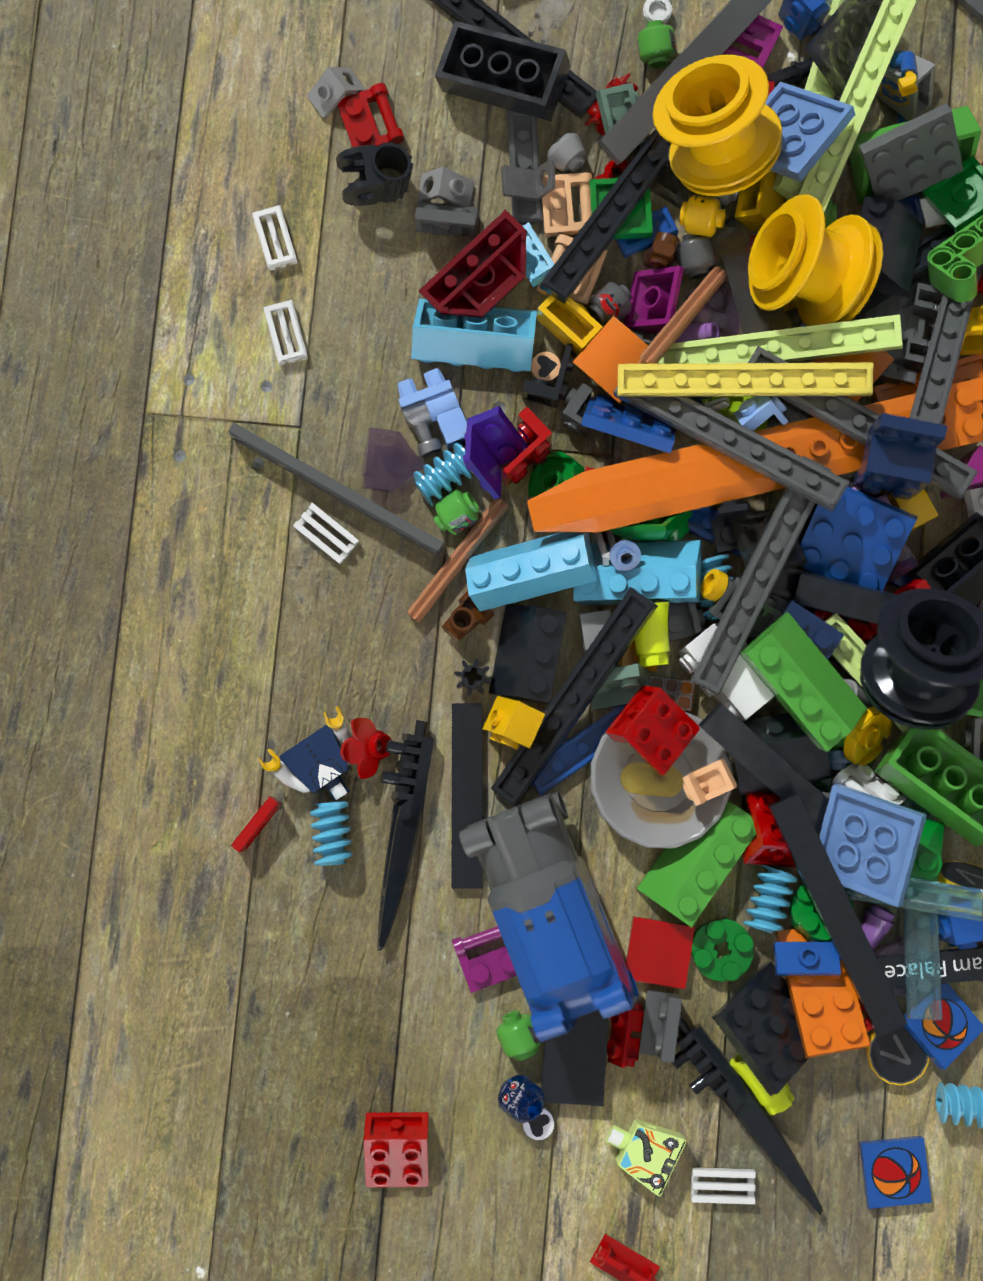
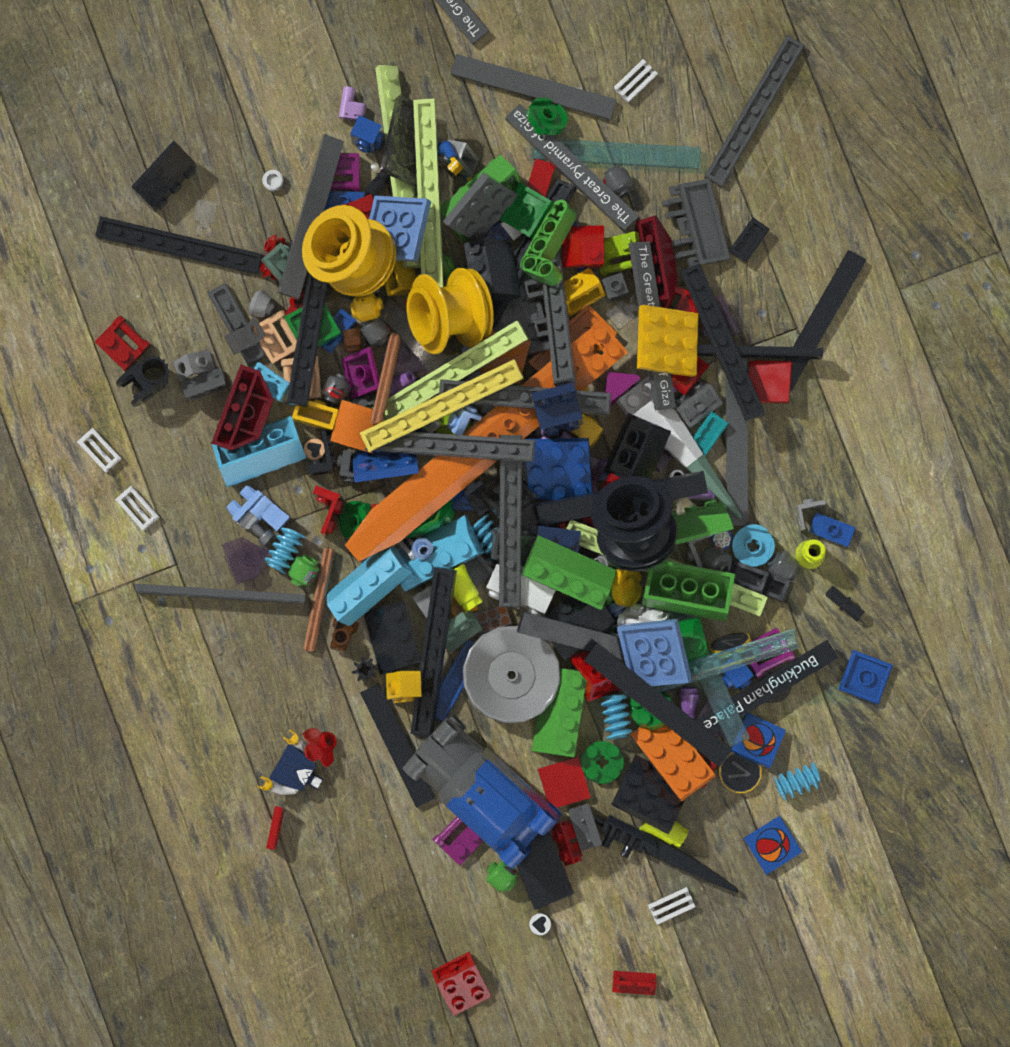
camera: 25 degrees left, 0 degrees up
(306, 517) = (209, 620): white tile -> none
(331, 833) = (324, 810): medium azure piece -> none
(332, 88) = (89, 335): light grey bracket -> none
(406, 819) = (365, 775): black piece -> none
(489, 444) = (303, 518): dark purple bracket -> none
(502, 70) = (194, 273): black brick -> none
(521, 1099) = (521, 913): clear blue head -> none
(644, 780) = (505, 679): clear yellow tile -> none
(647, 1152) = (614, 908): yellowish green torso -> none
(654, 728) = (492, 646): red bracket -> none
(657, 44) = (284, 204): bright green head -> none
(709, 782) = (541, 663): light nougat bracket -> none
(714, 585) = (486, 539): yellow tile -> none
(806, 959) = (653, 741): blue plate -> none

